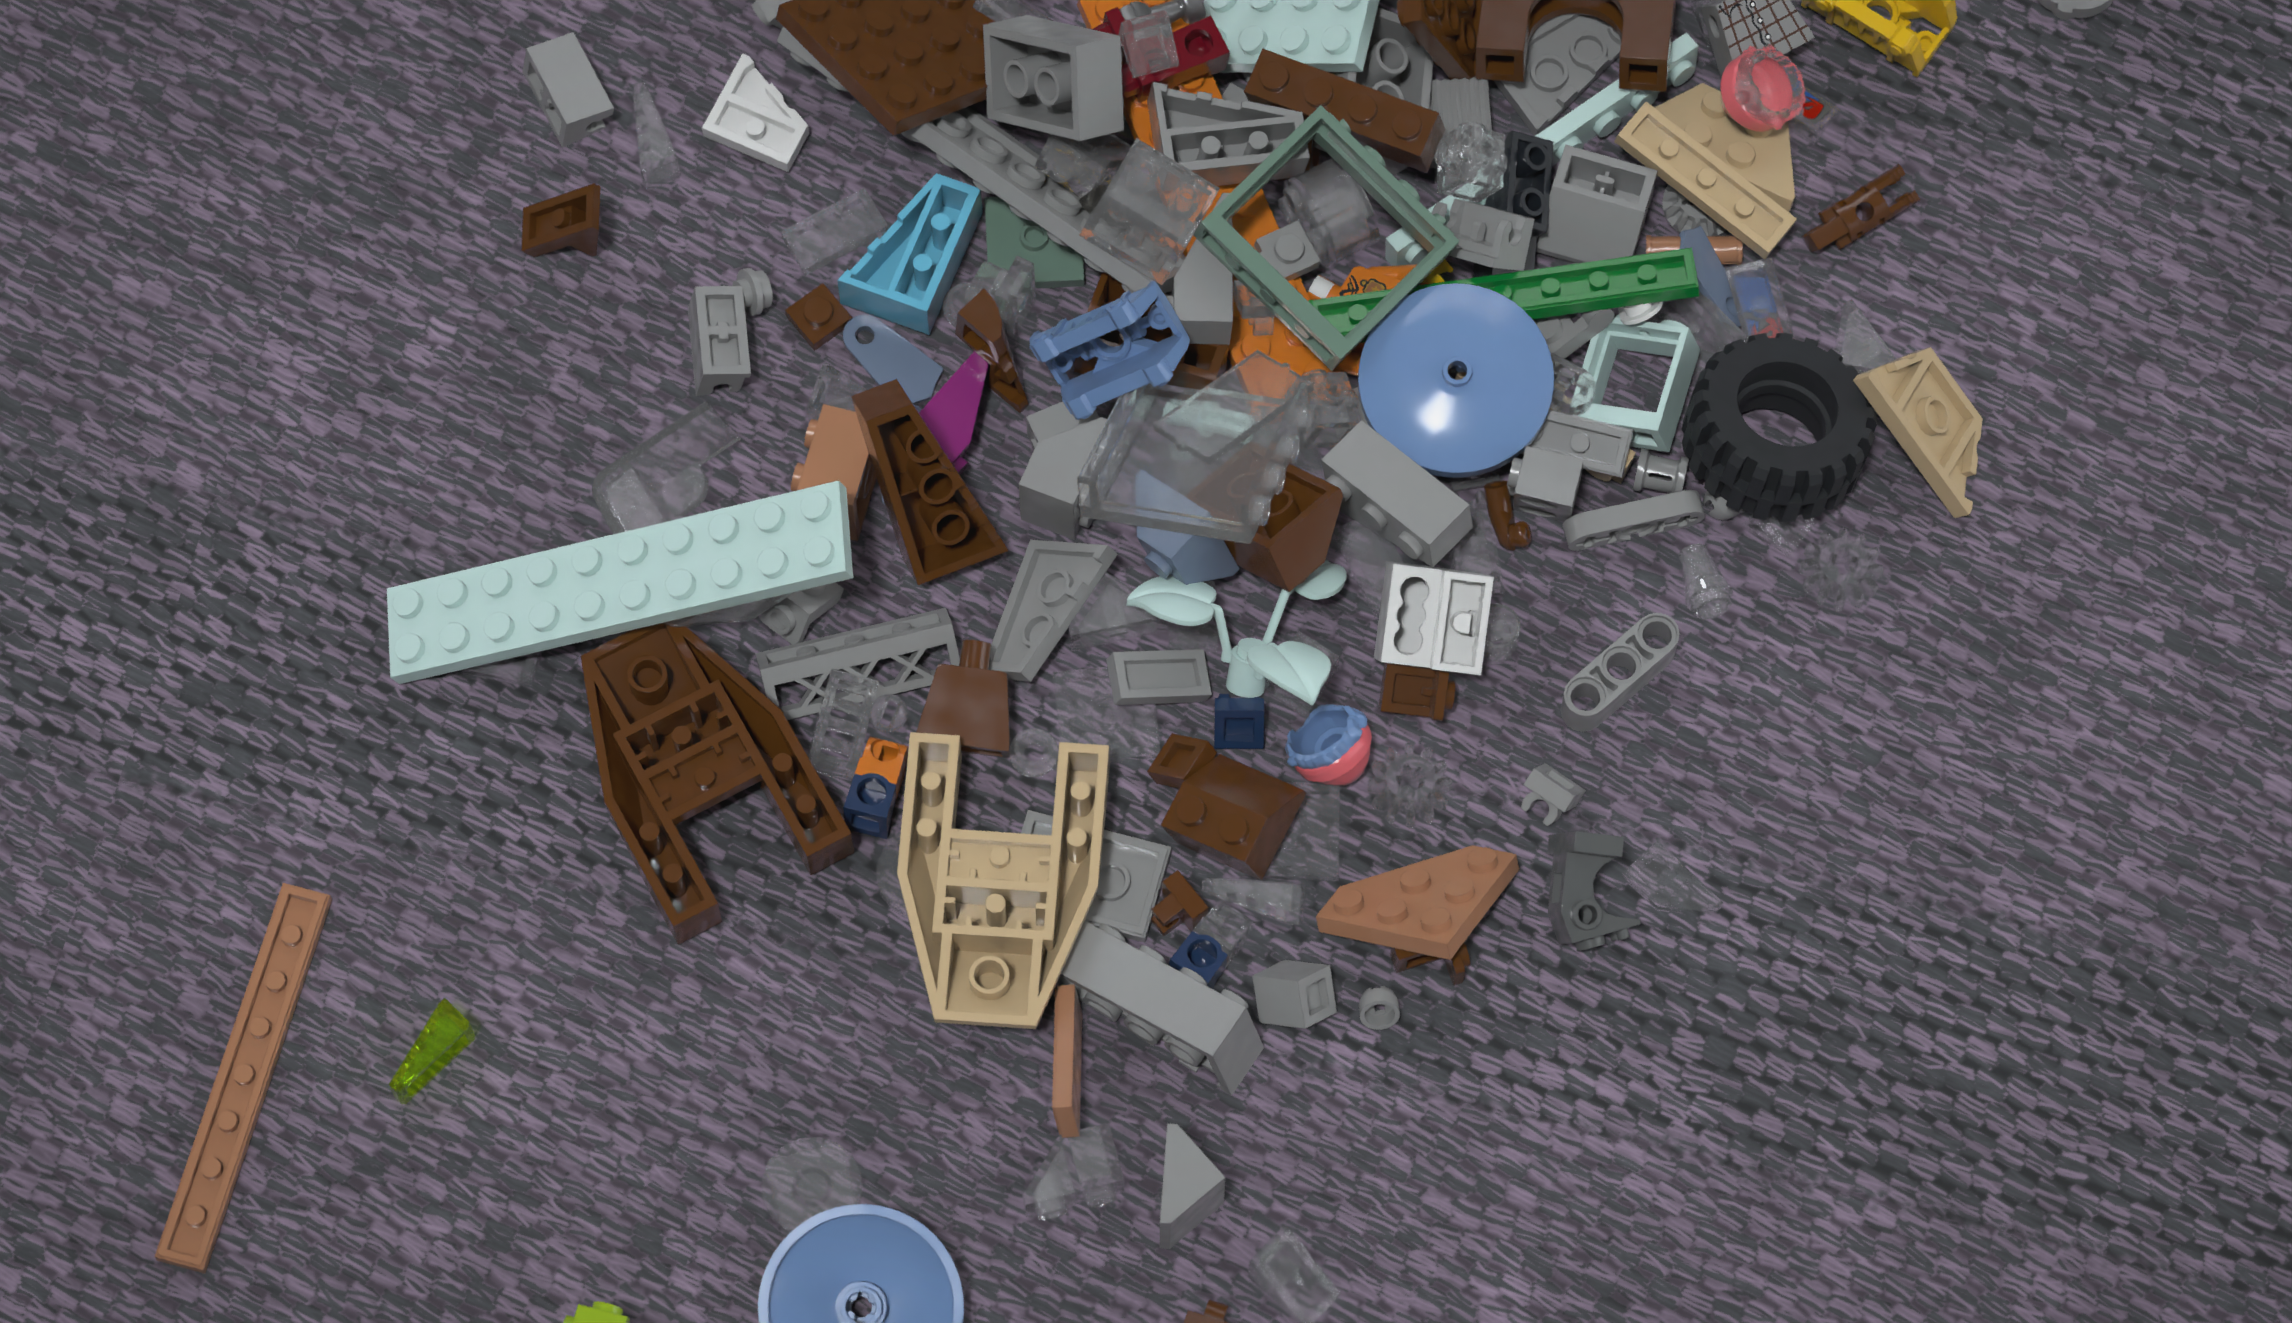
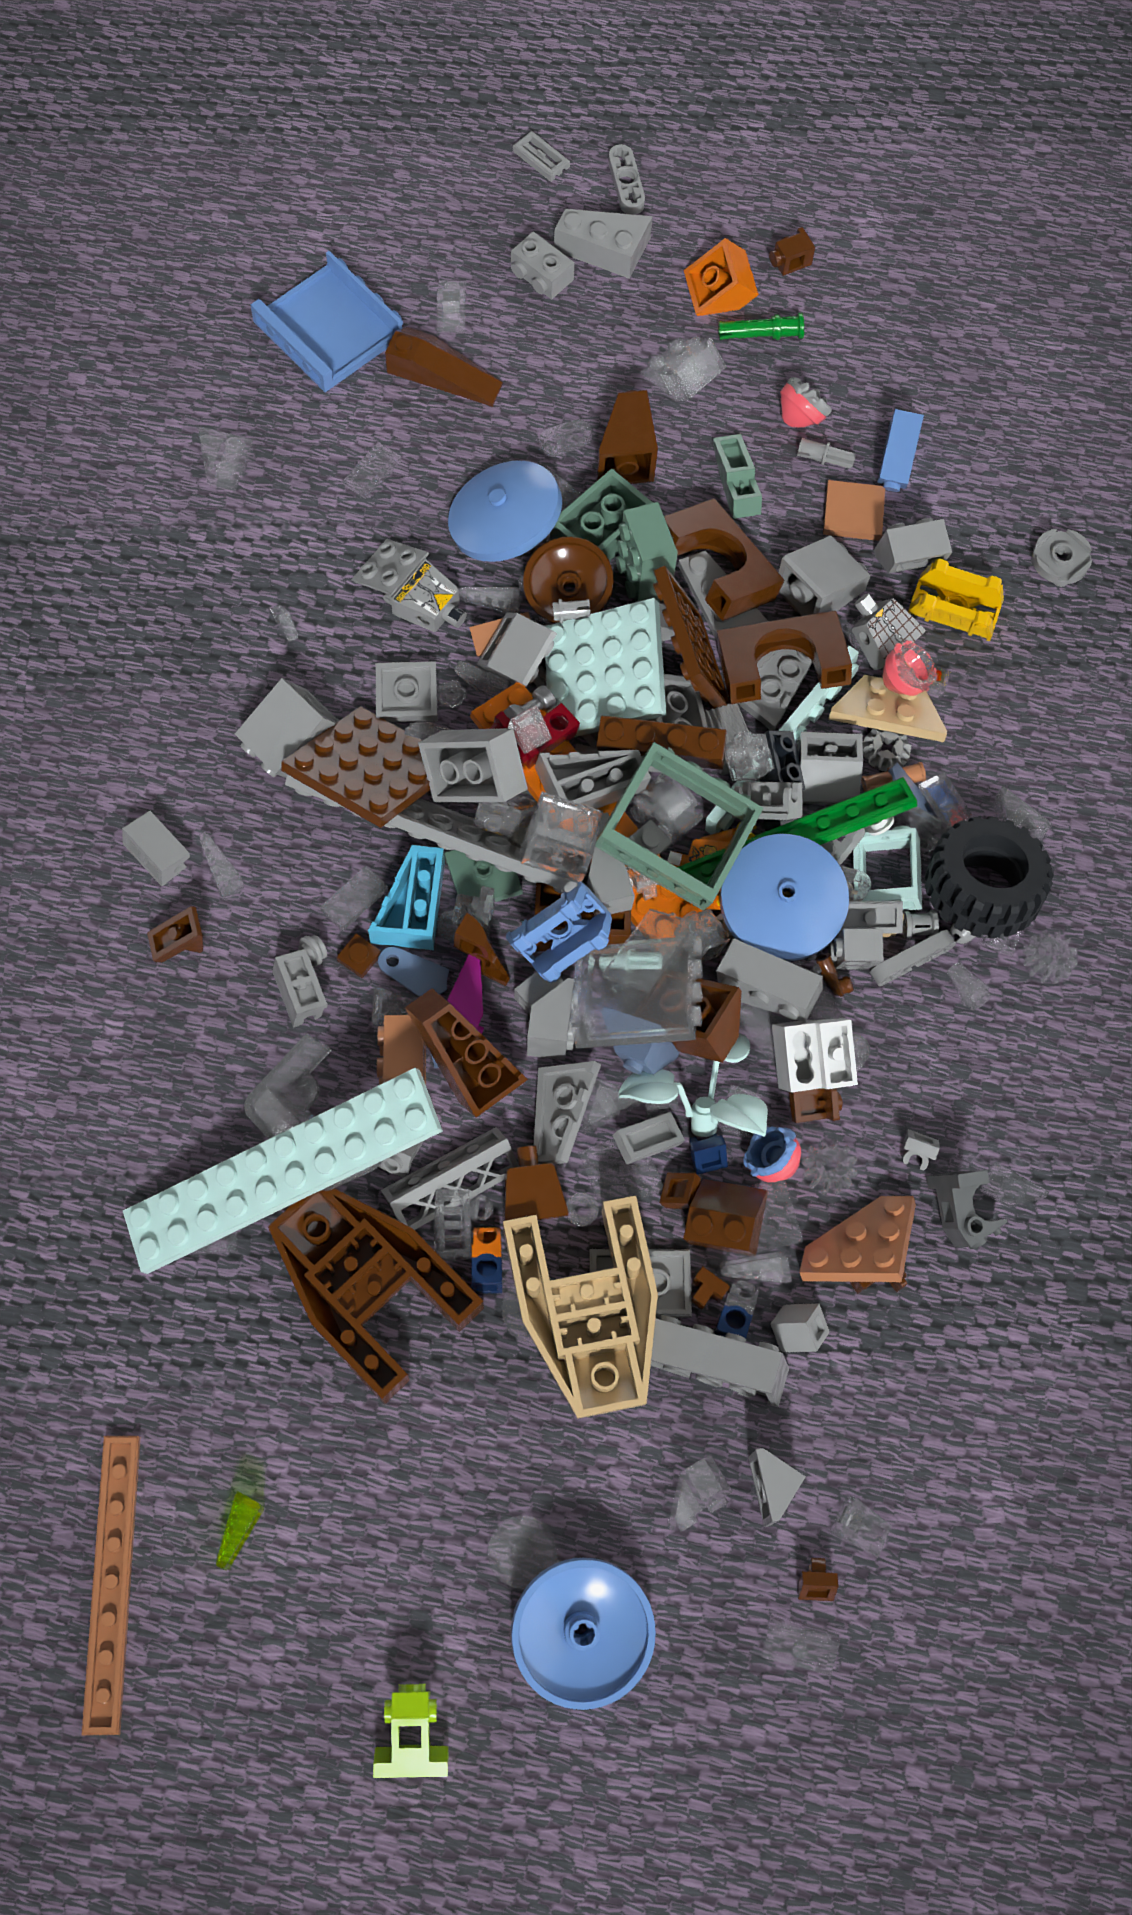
camera: 20 degrees left, 0 degrees up
(756, 119) = (283, 838): white wing -> none
(1067, 1061) = (670, 1419): nougat tile -> none
(1382, 1018) = (856, 1321): light grey hinge -> none
(1628, 652) = (947, 1048): light grey beam -> none
(1705, 180) = (892, 733): tan plate -> none
(1841, 221) = (984, 731): reddish brown hinge -> none
(1929, 421) = (1076, 850): tan wing -> none

